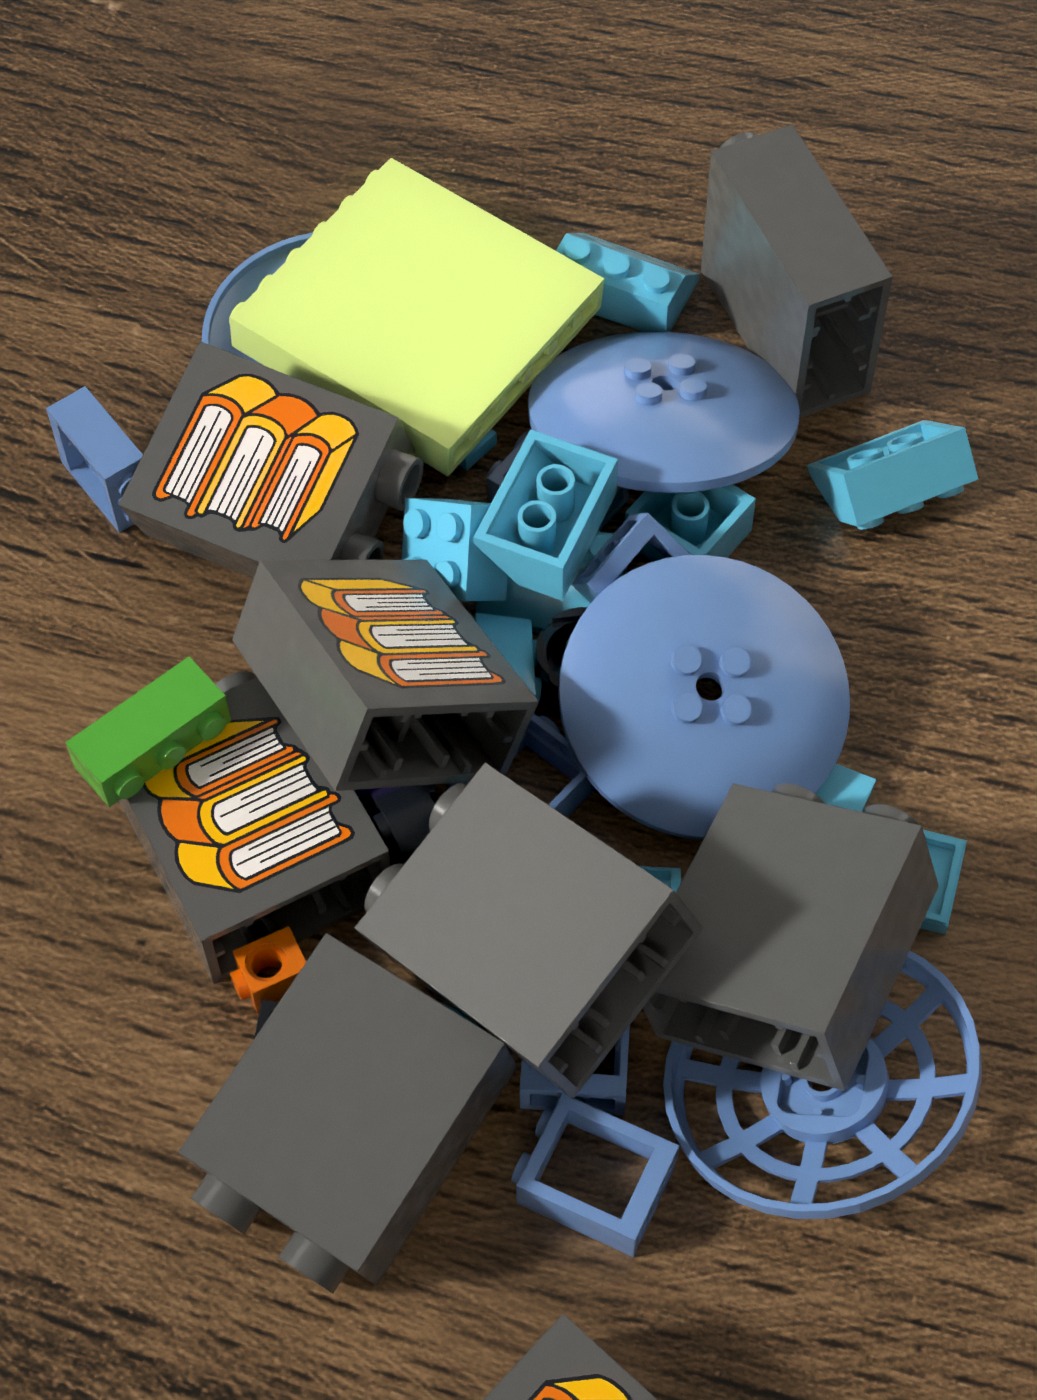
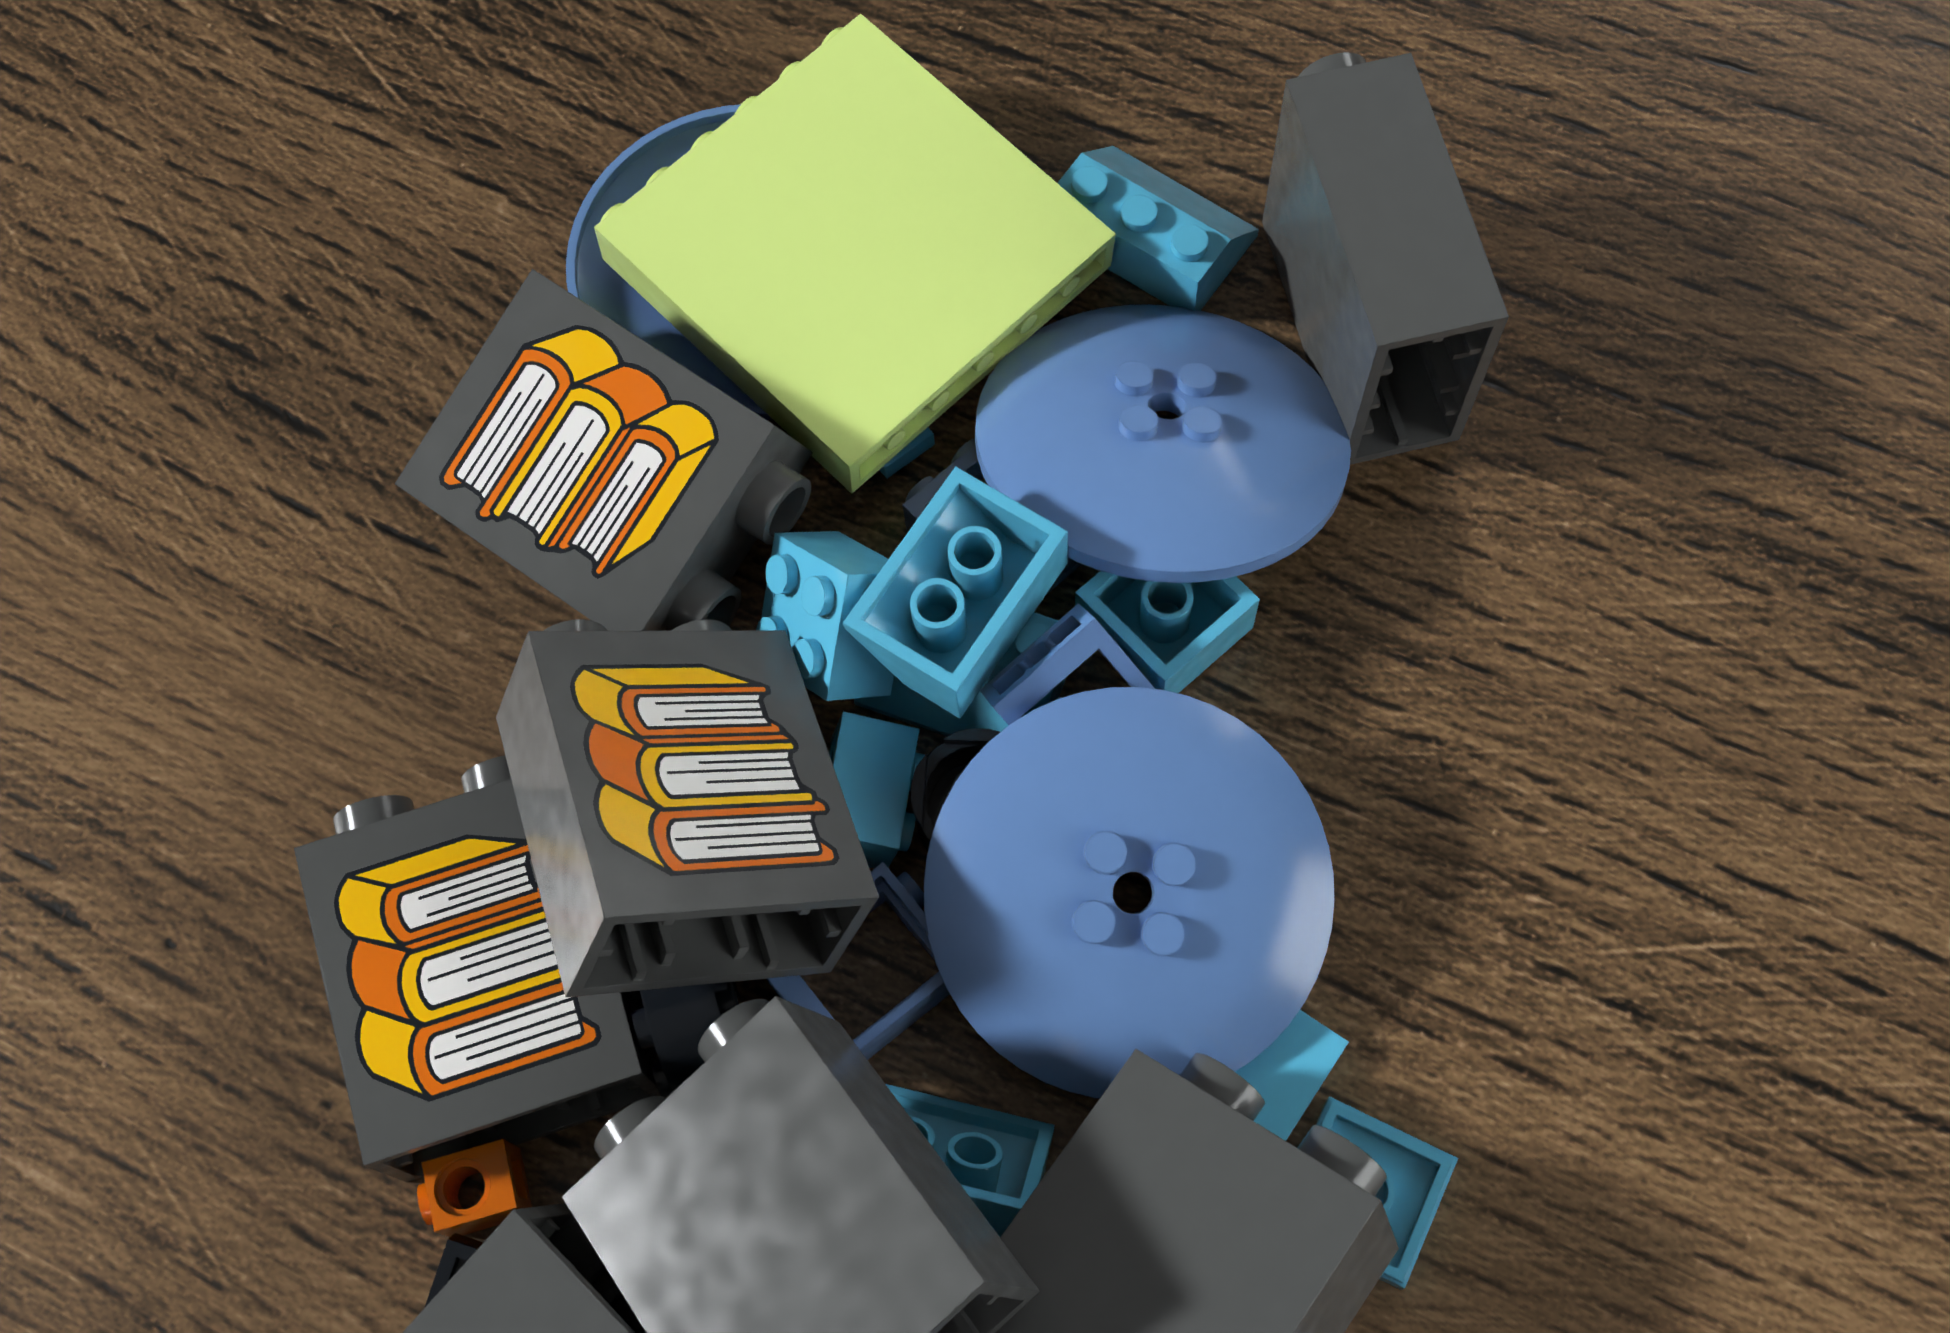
camera: 15 degrees right, 10 degrees up
(95, 452) = (389, 379): medium blue window -> none
(149, 732) = (350, 847): bright green brick -> none
(895, 472) = (1467, 573): medium azure slope -> none

